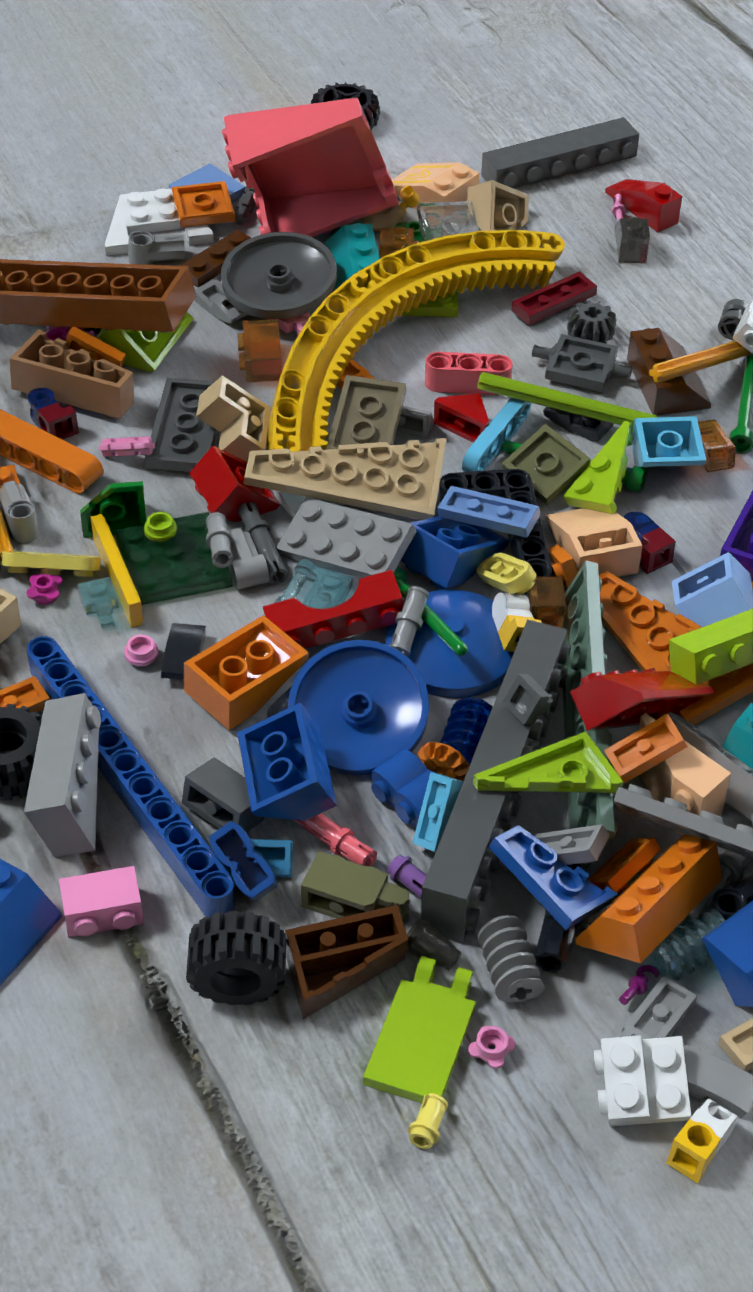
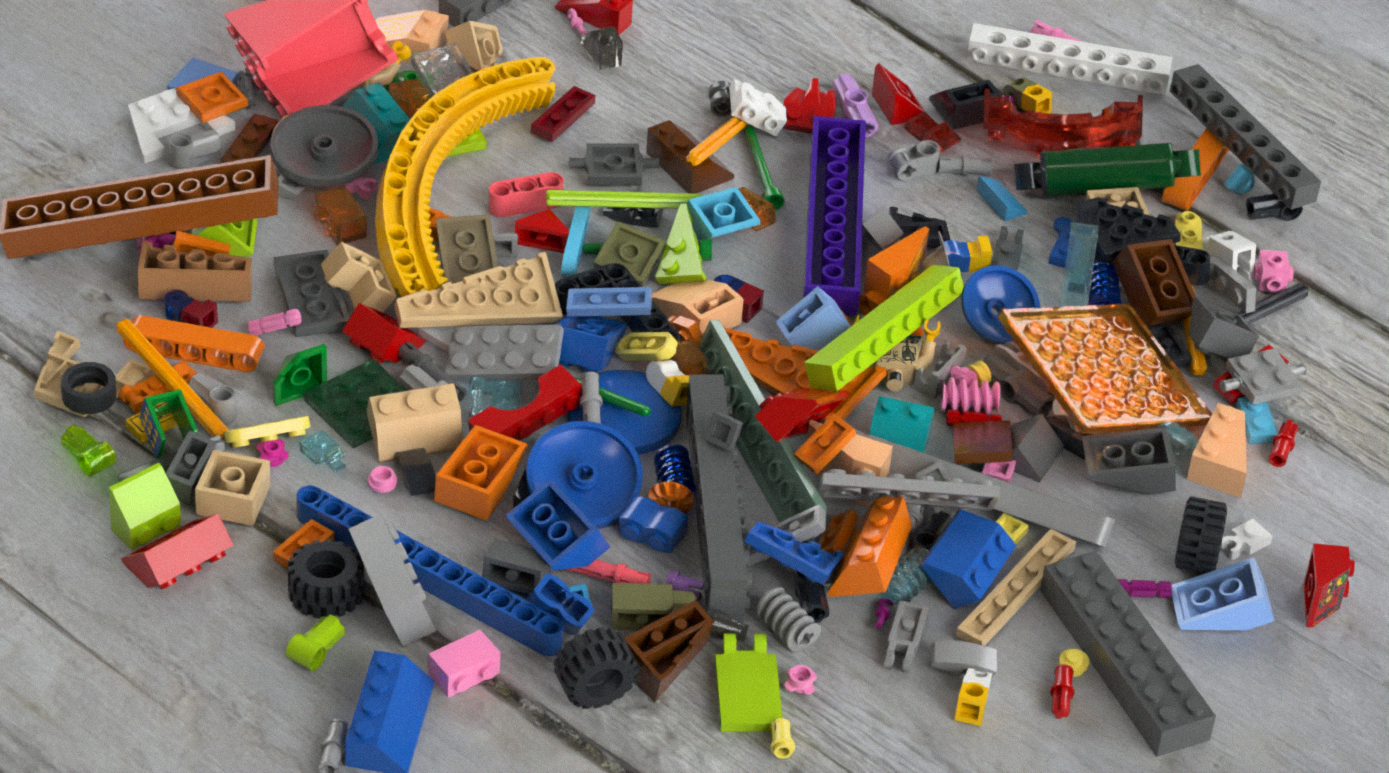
camera: 25 degrees left, 5 degrees down
(117, 571) = (323, 419): yellow tile -> none
(160, 527) = (347, 379): lime plate -> none
(204, 593) = (415, 420): none -> tan slope
(219, 540) = (400, 375): light grey pin -> none
(436, 810) = (687, 532): medium azure plate -> none
(560, 767) = (768, 473): lime wing -> none
(592, 322) = (606, 127): dark grey gear -> none
(643, 1080) = (918, 669): white plate -> none

